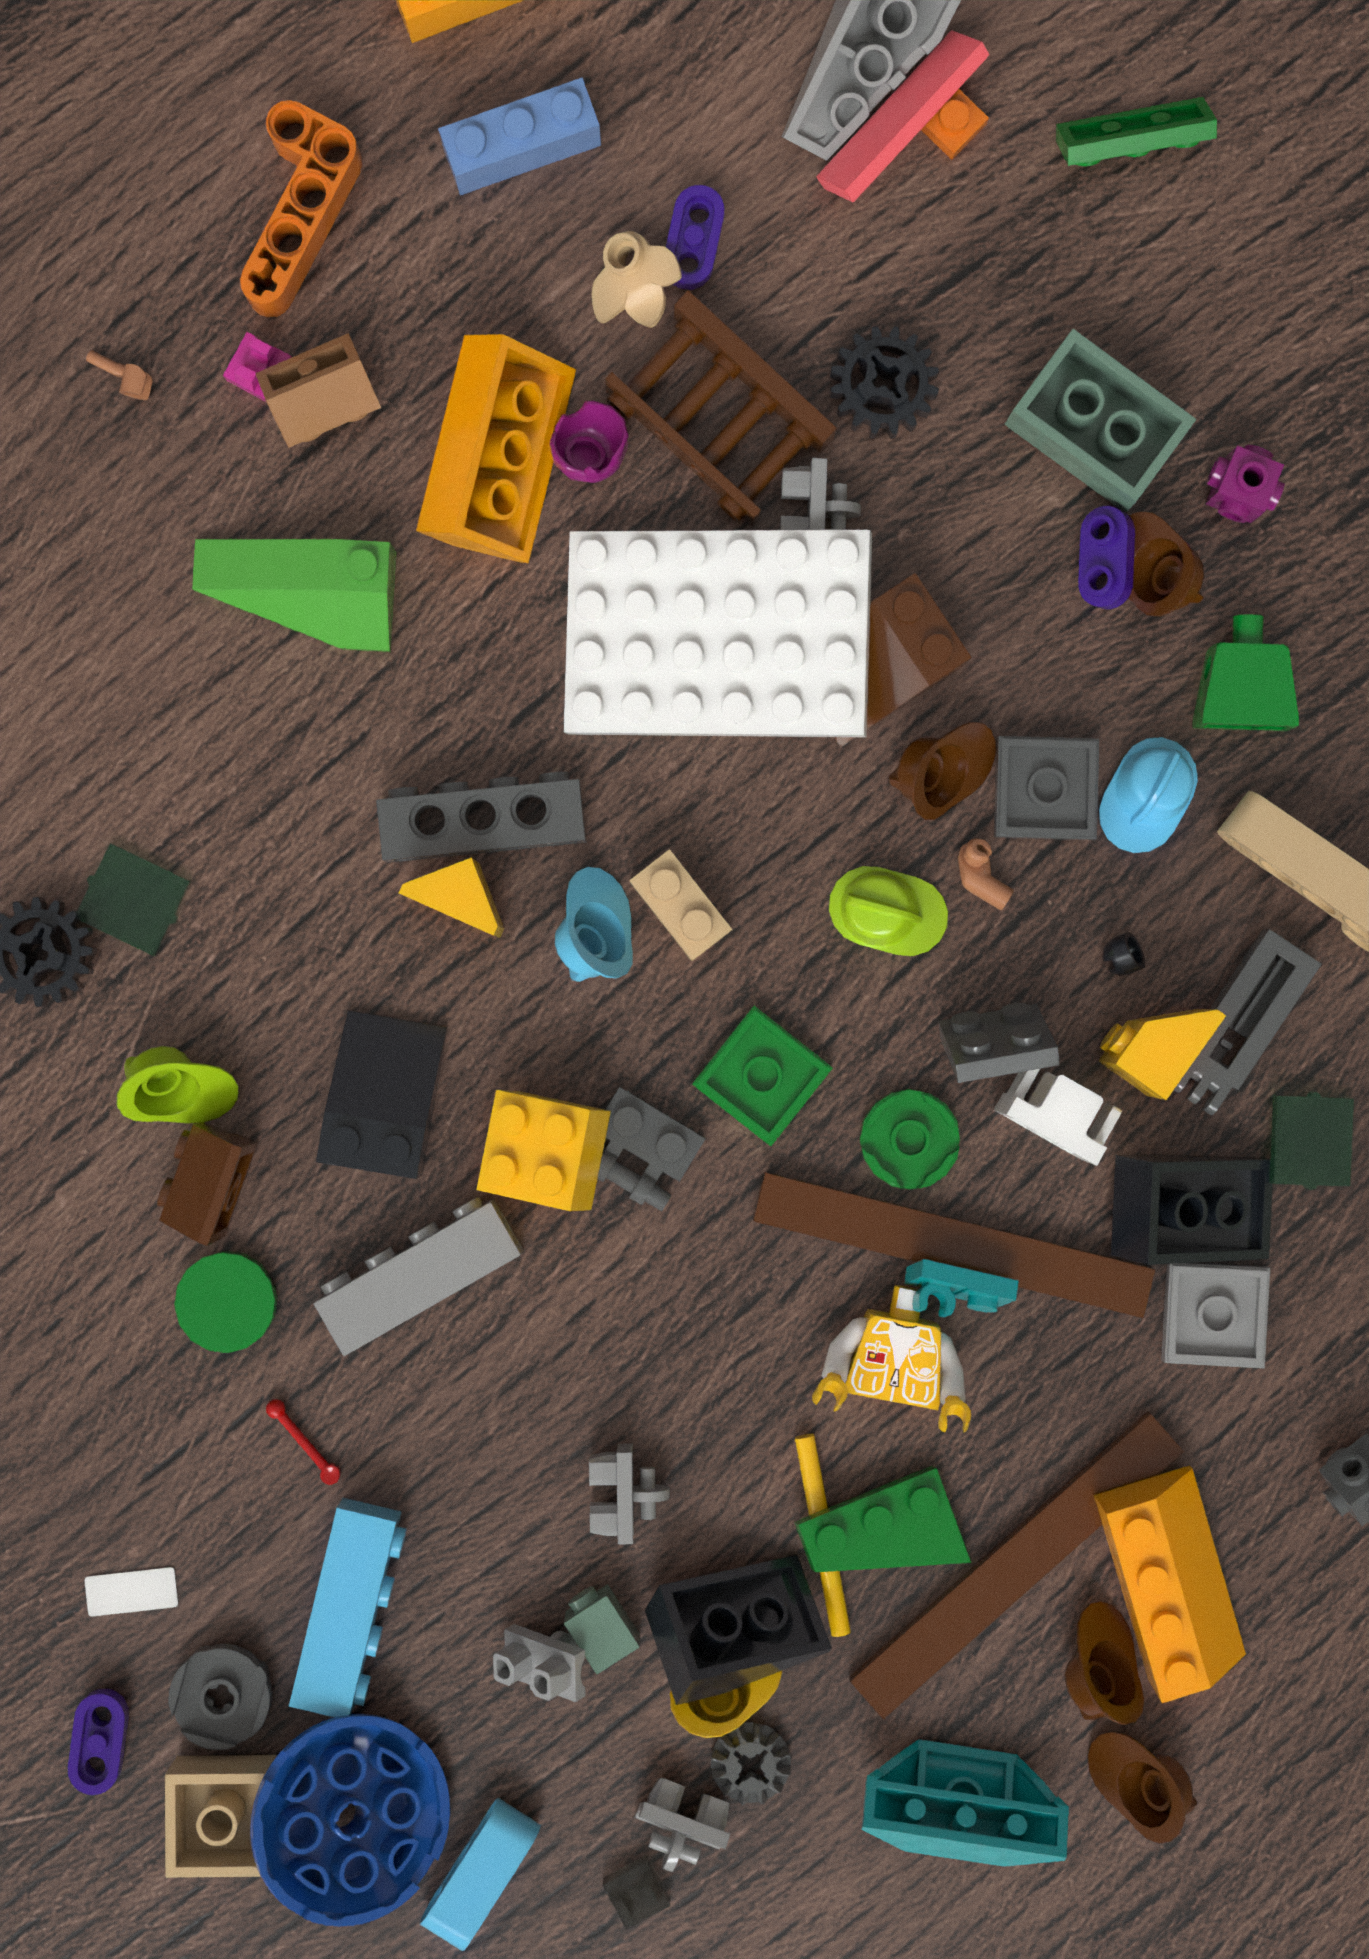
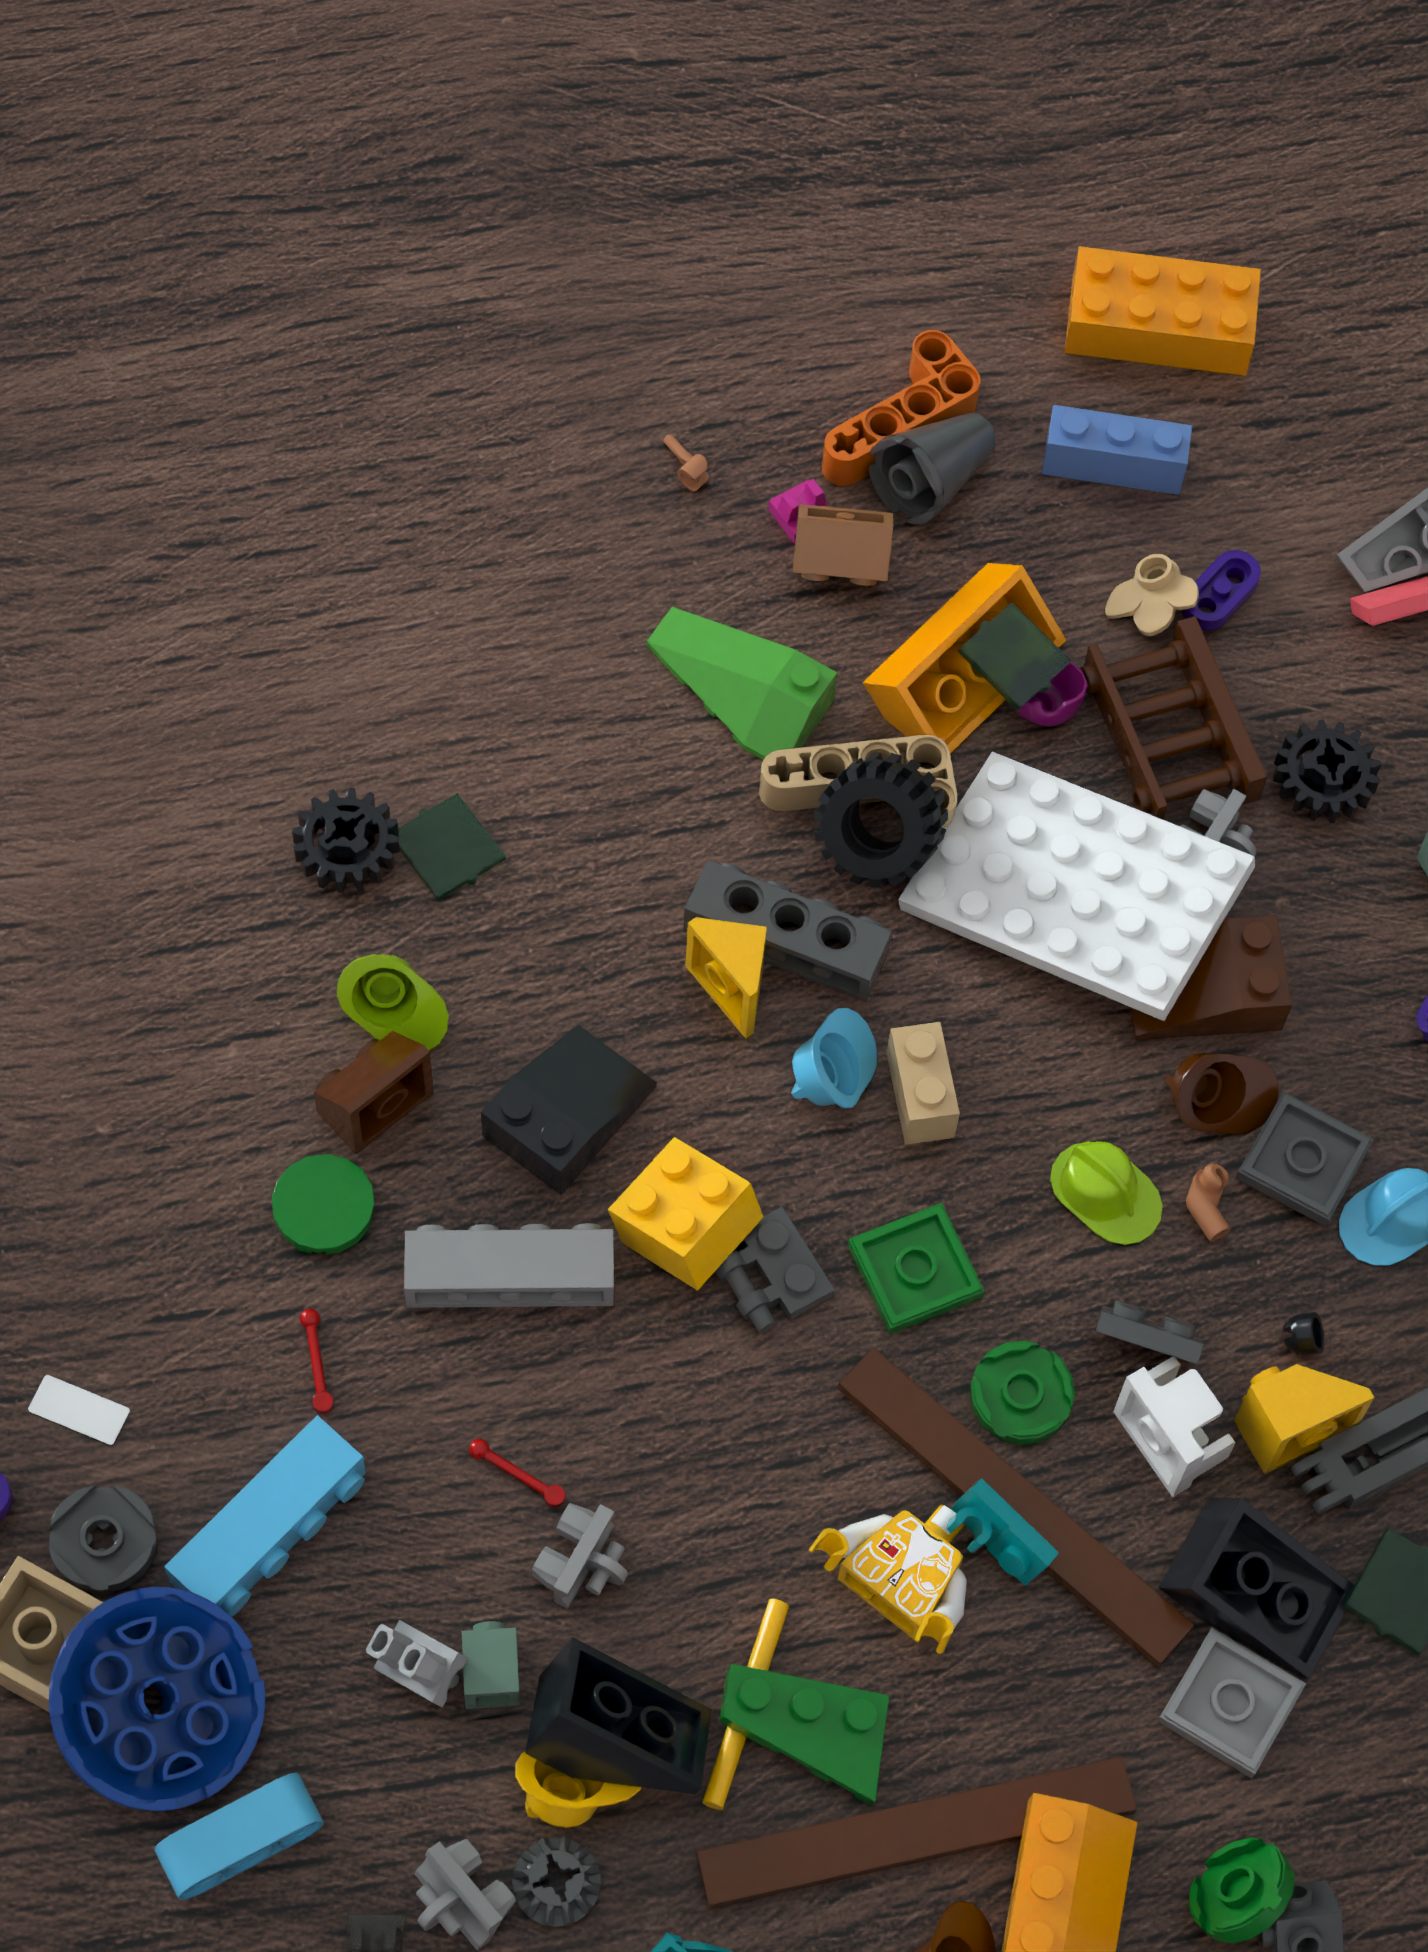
camera: 25 degrees right, 25 degrees down
(355, 252) = (930, 464): none -> dark grey cone
(465, 635) = (812, 761): none -> tan beam
(511, 645) = (850, 841): none -> black tyre
(544, 433) = (1014, 656): none -> clear green piece
(567, 1446) = (553, 1495): none -> red hinge
(1304, 1482) = (1241, 1890): none -> green tile

